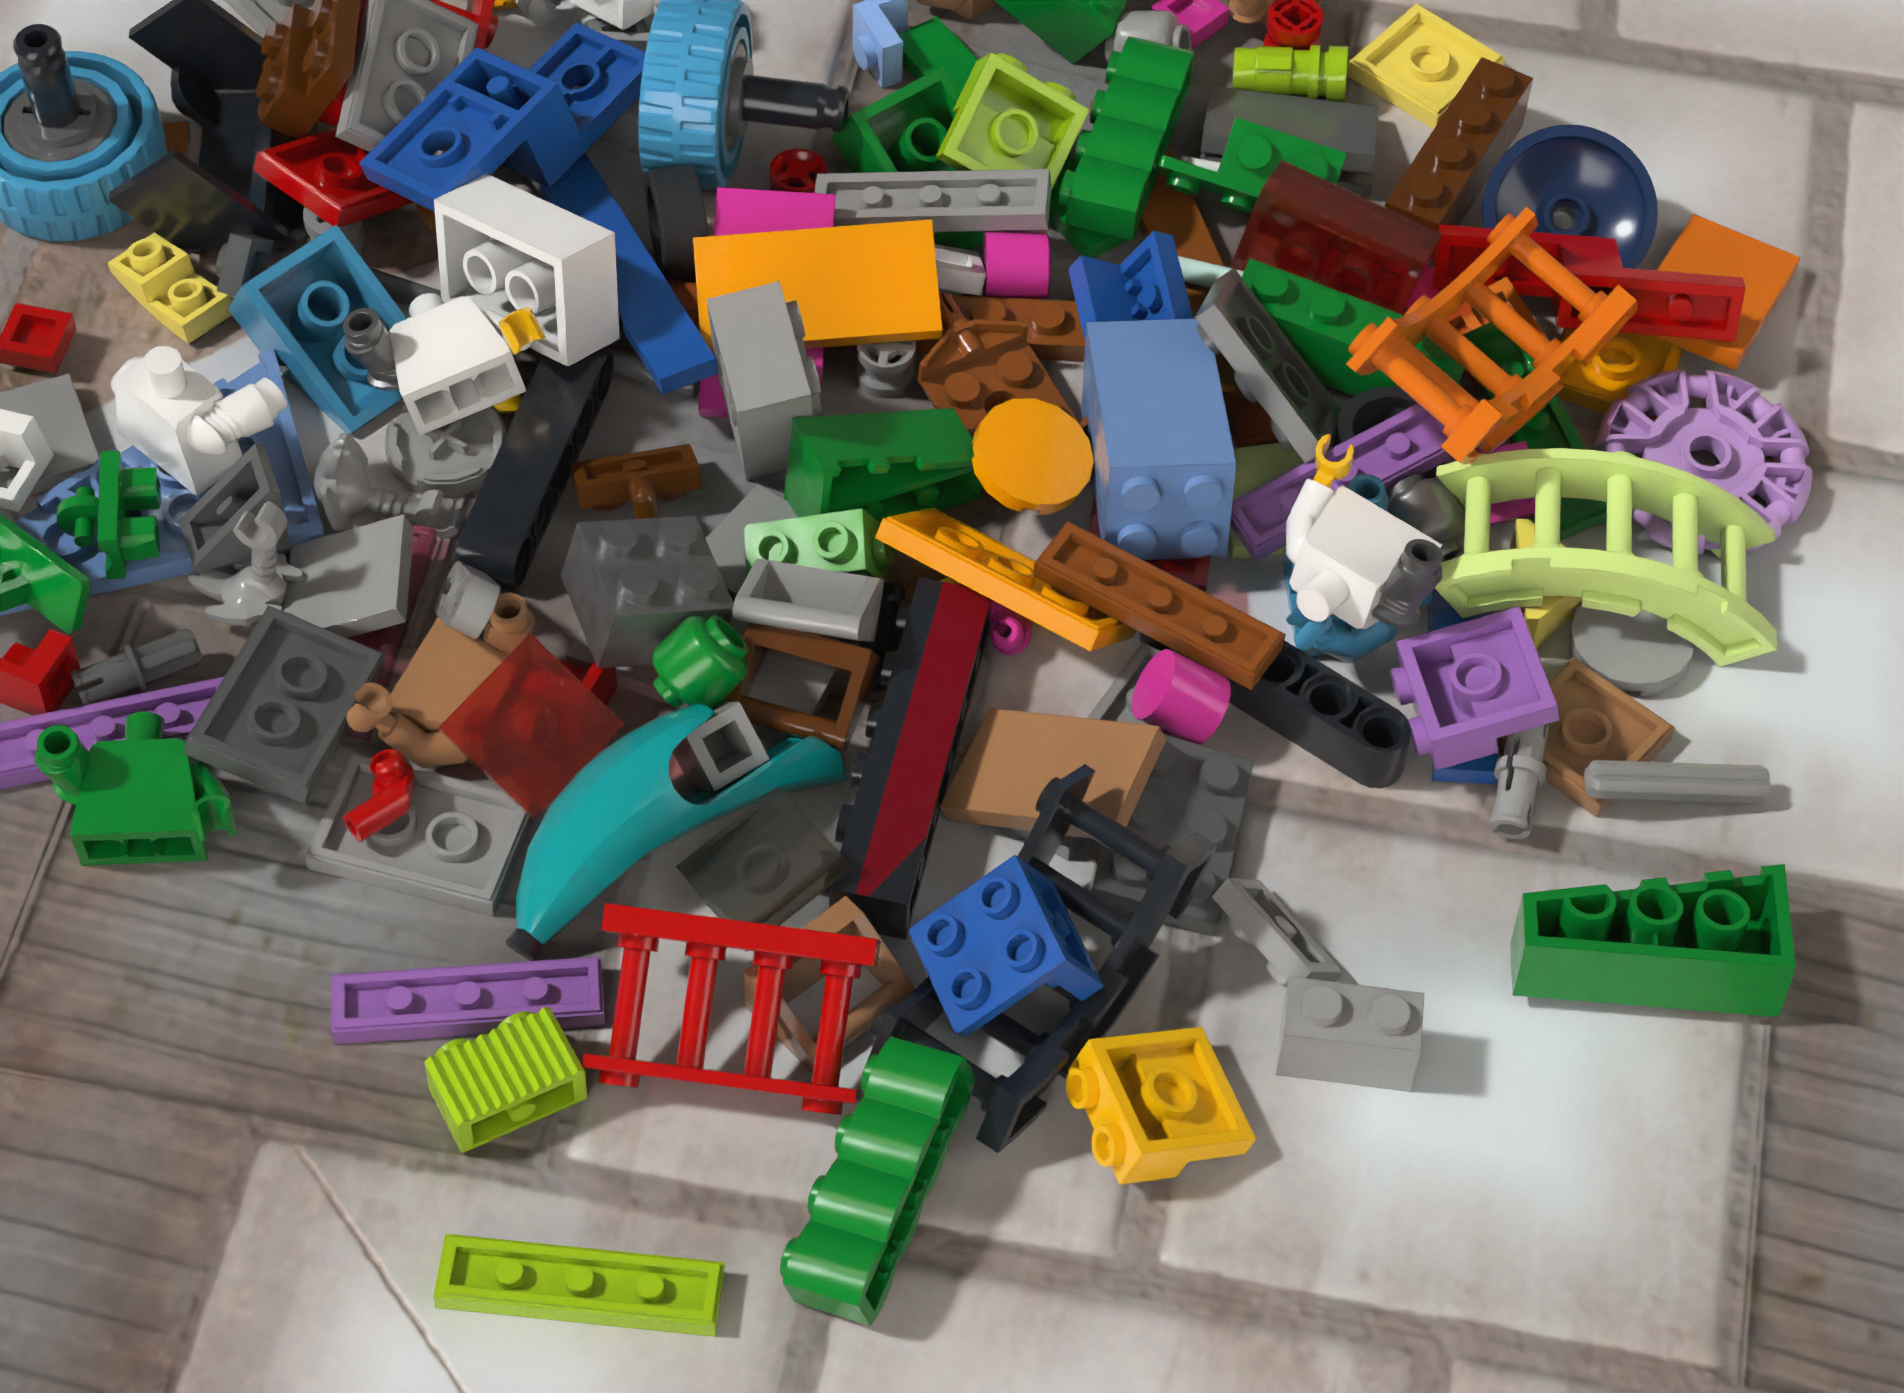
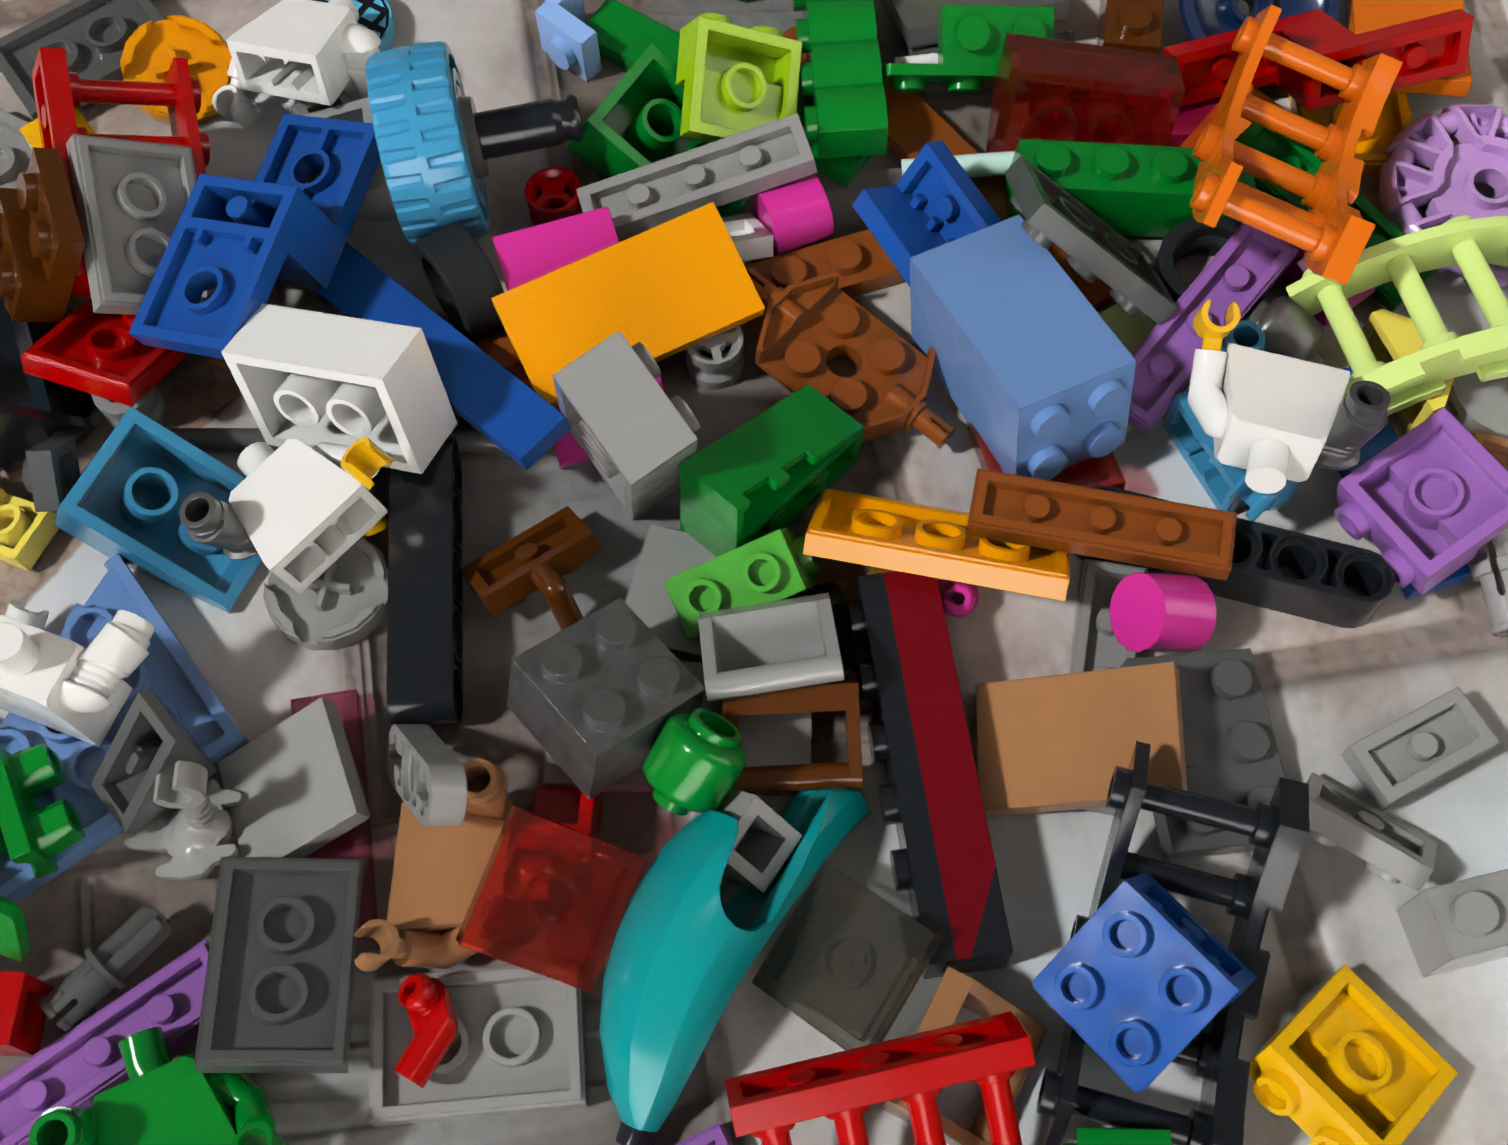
camera: 15 degrees left, 10 degrees up
(346, 491) = (248, 682): light grey piece -> none
(1032, 456) = (907, 409): light orange tile -> none
(1367, 892) = (1420, 748): none -> light grey plate

